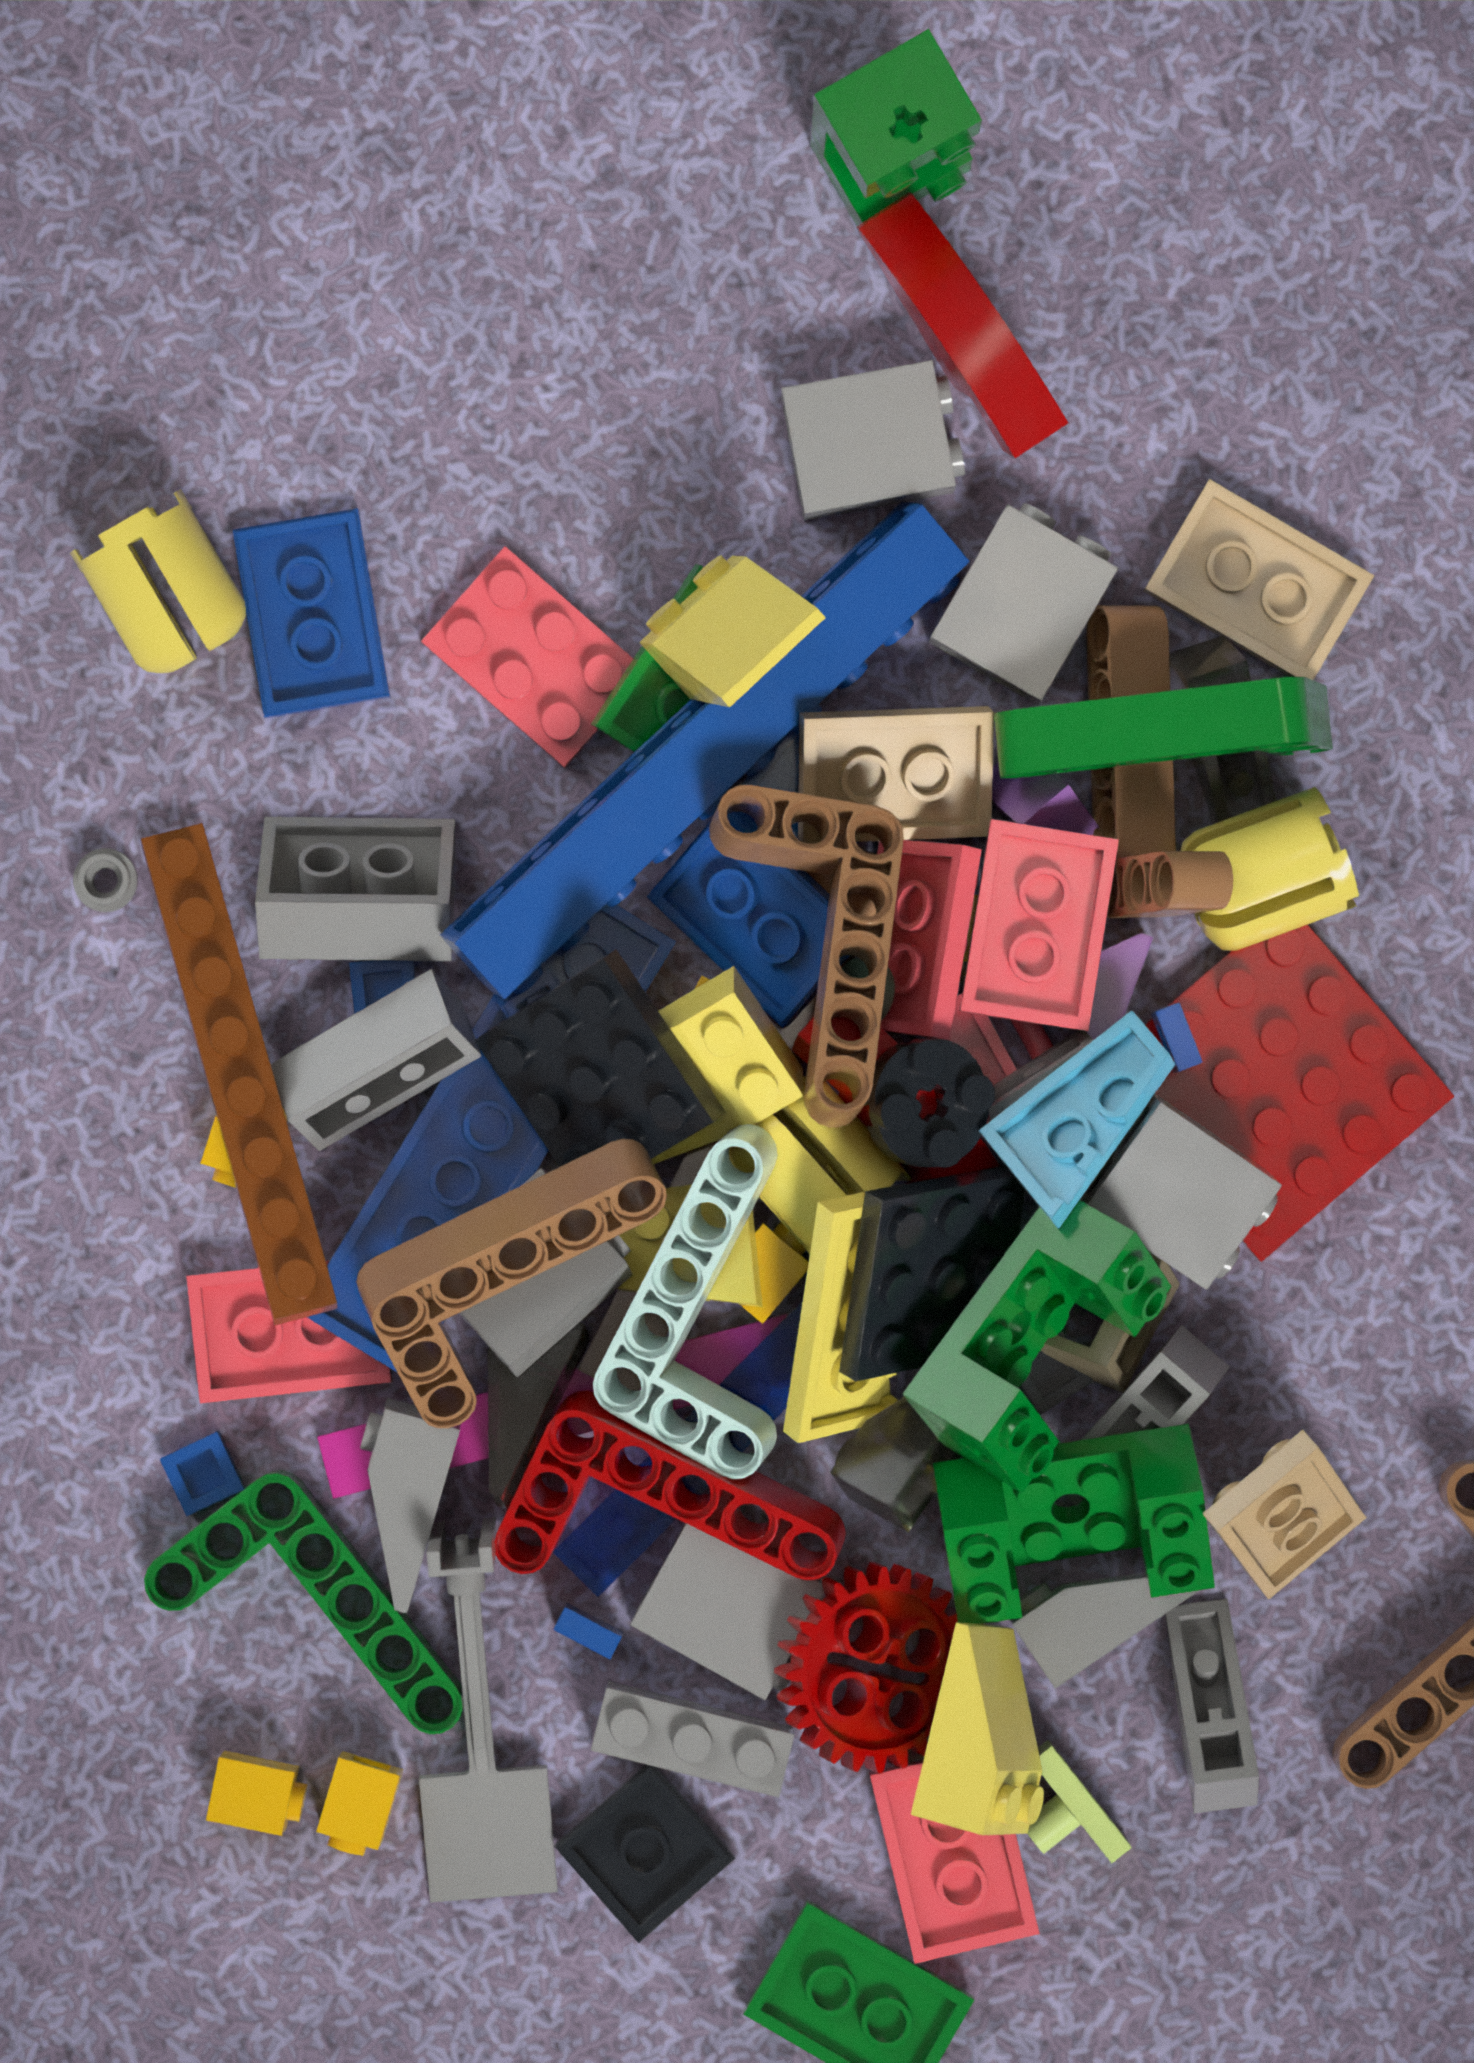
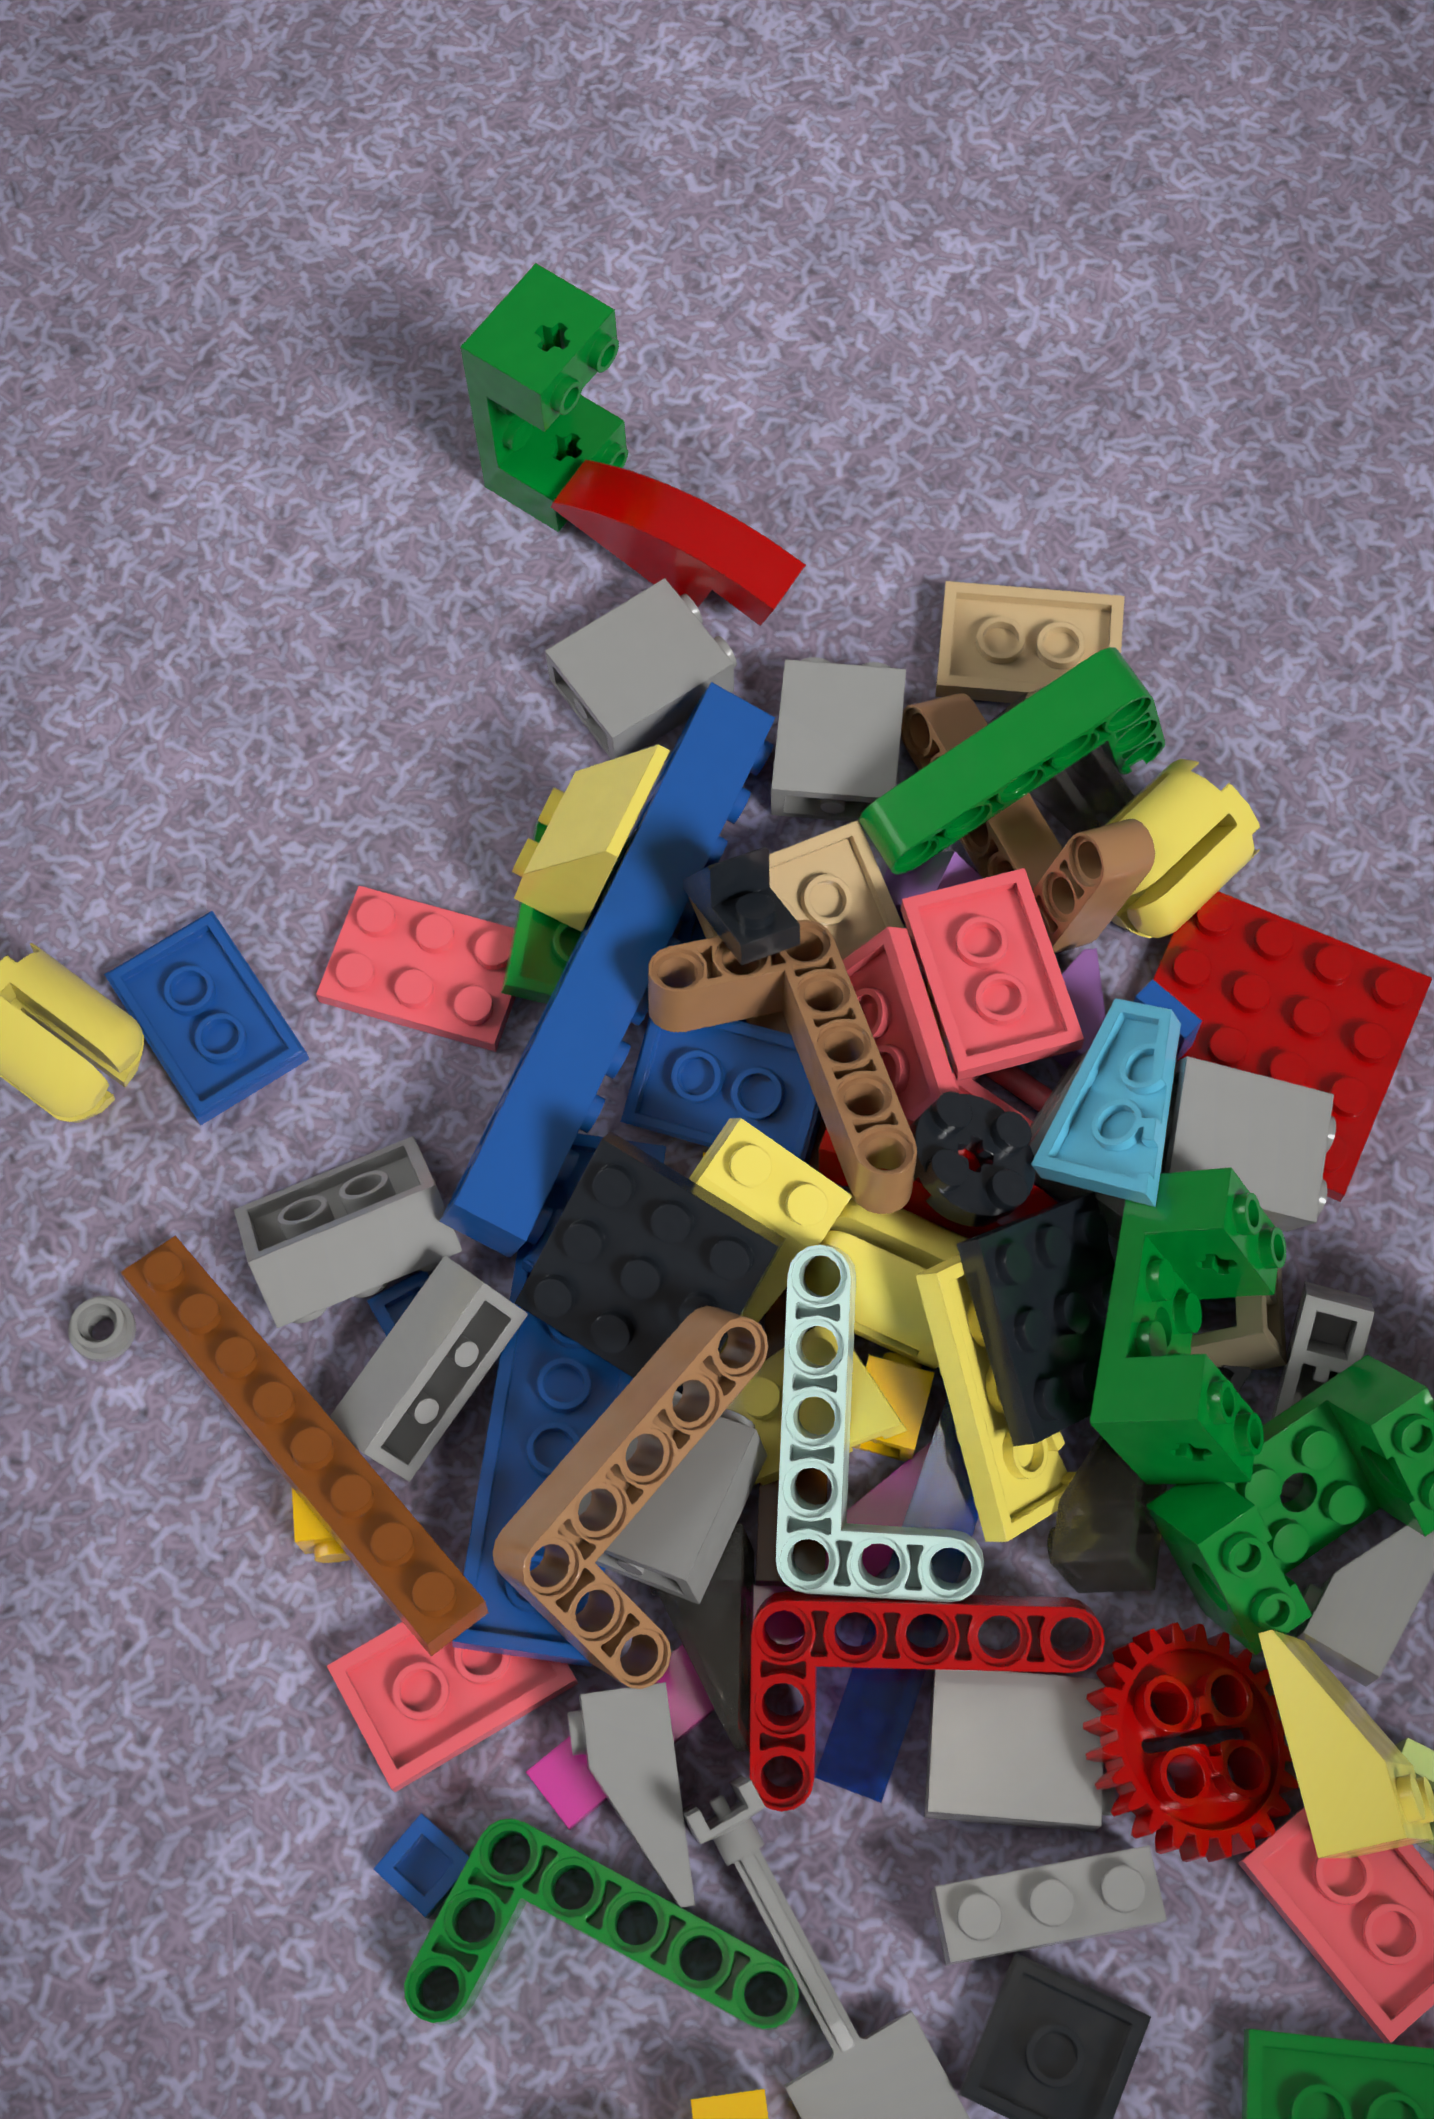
camera: 20 degrees left, 20 degrees down
(588, 1630) = (887, 1843): blue tile -> none
(834, 775) = (743, 907): none -> black slope

